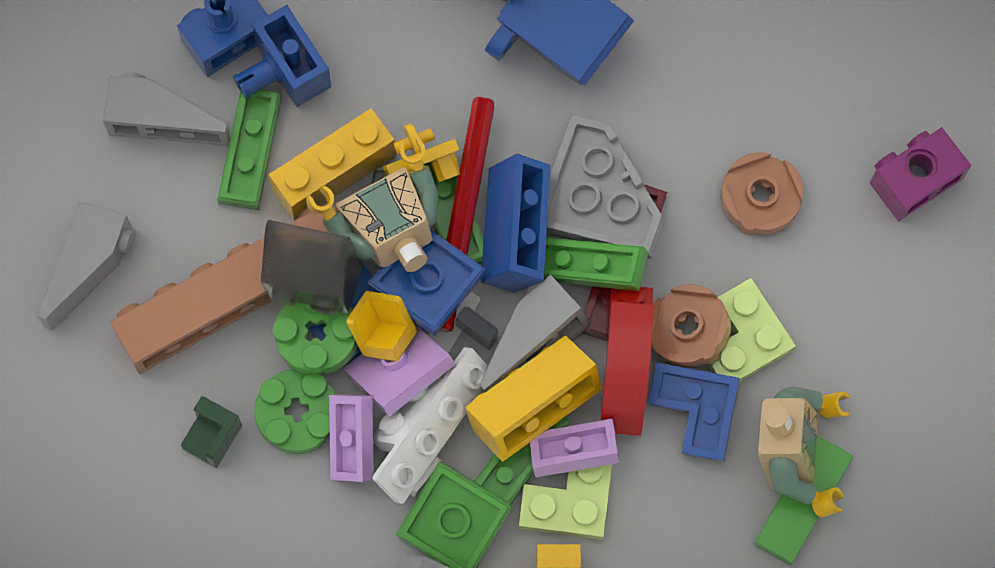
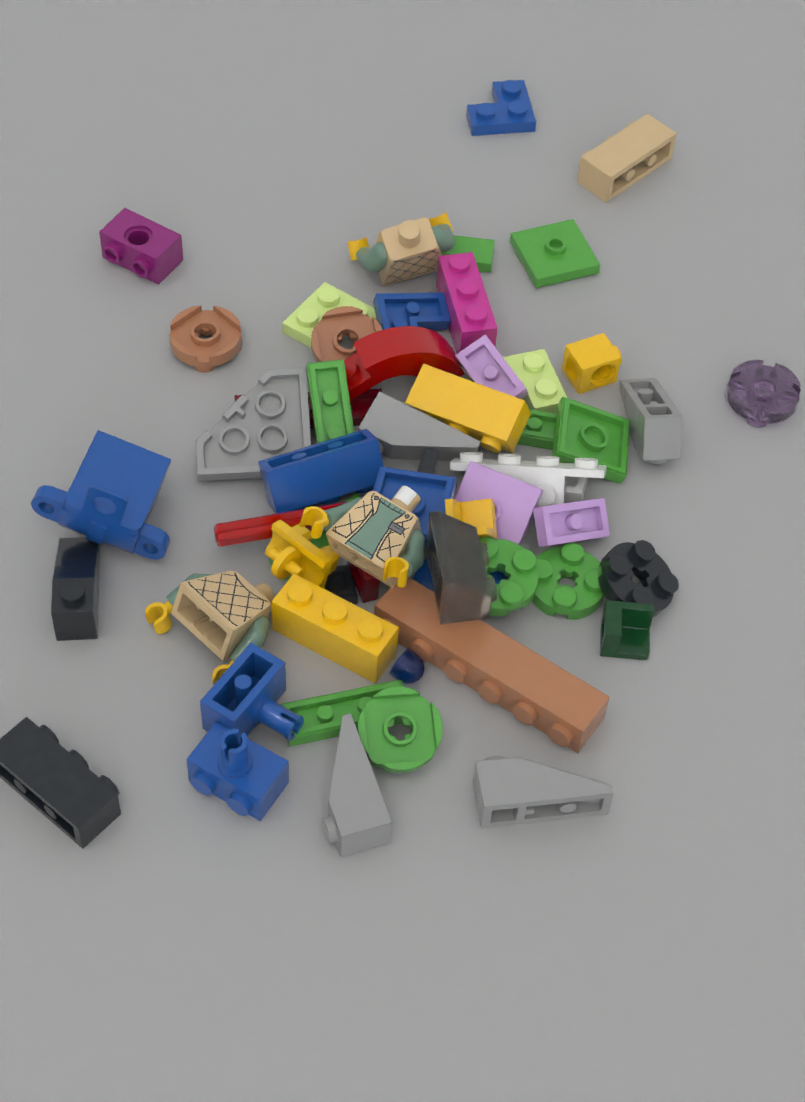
camera: 115 degrees left, 20 degrees down
(211, 192) = (414, 712): none -> bright green plate
(264, 211) = (408, 667): none -> clear blue hinge
(279, 483) = (643, 562): none -> black plate
(389, 73) = (219, 611): none -> tan torso
(693, 475) = (465, 299): none -> dark pink brick

